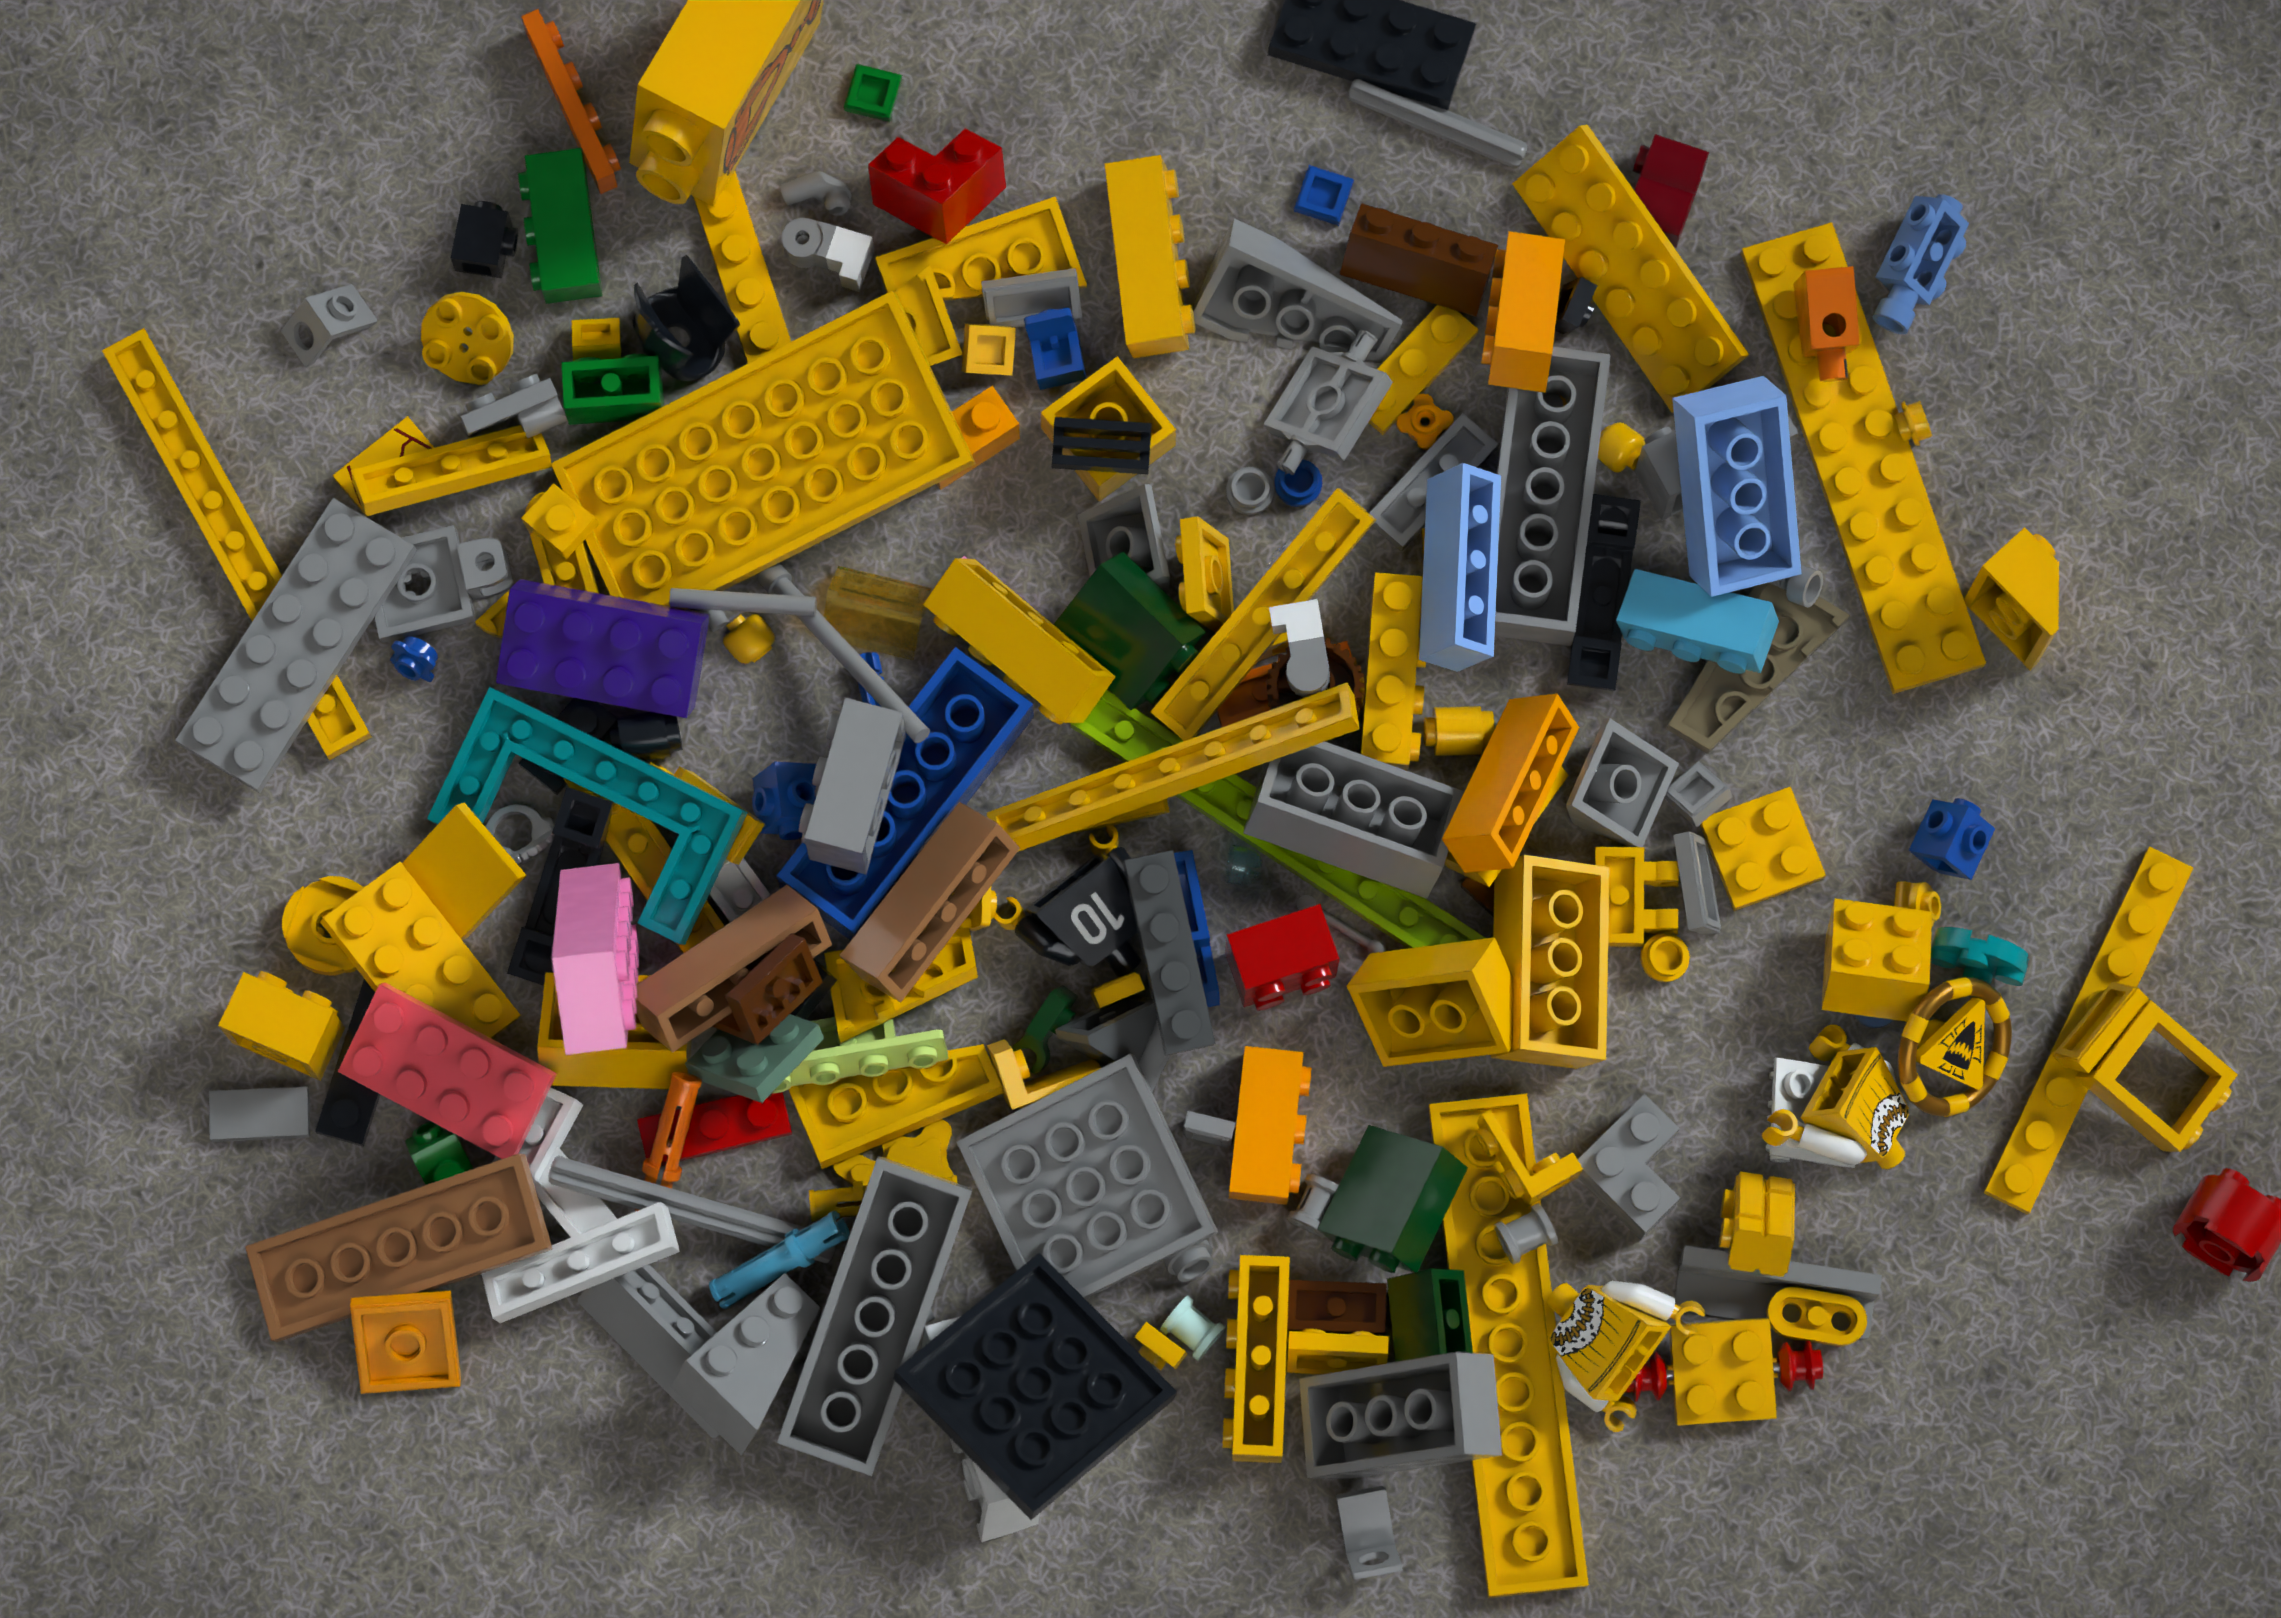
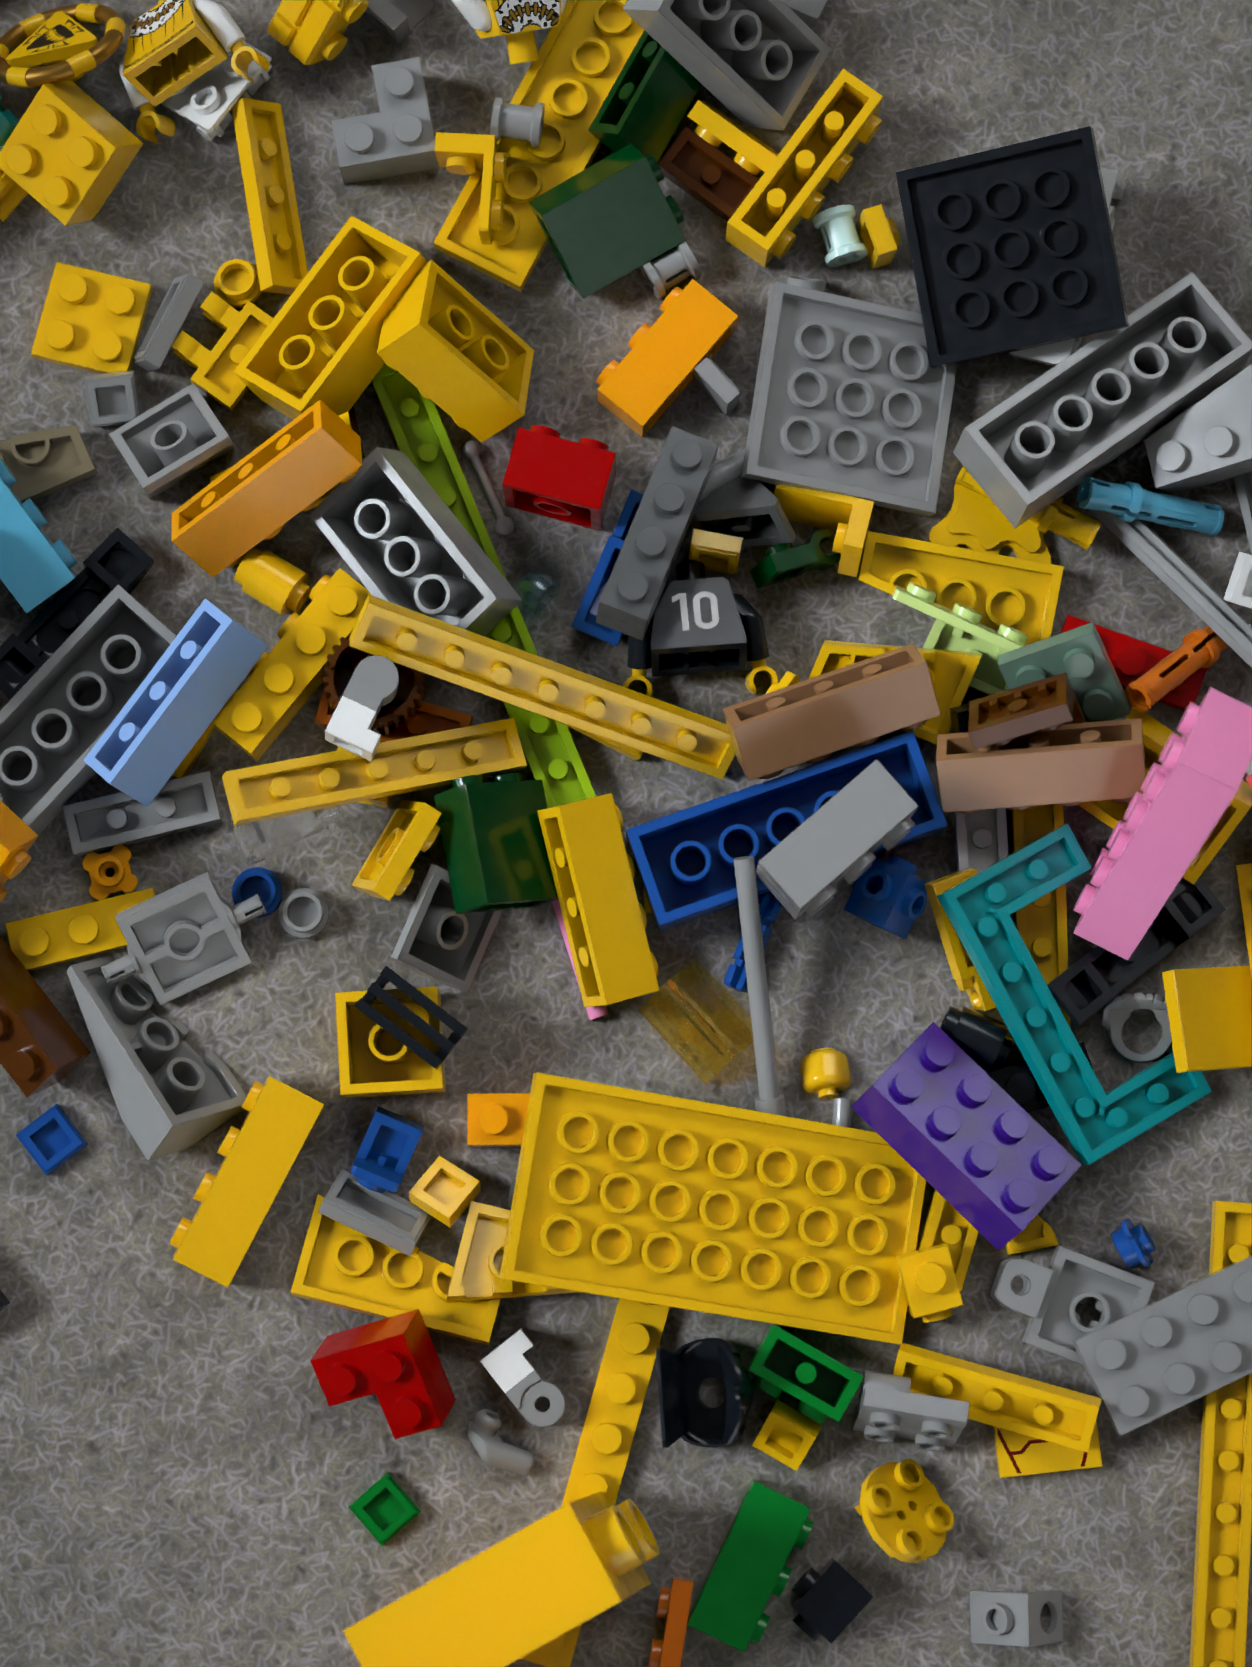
camera: 145 degrees left, 5 degrees up
(743, 602) = (816, 1094): light grey bar -> none
(1689, 1044) = (270, 195): none -> yellow plate

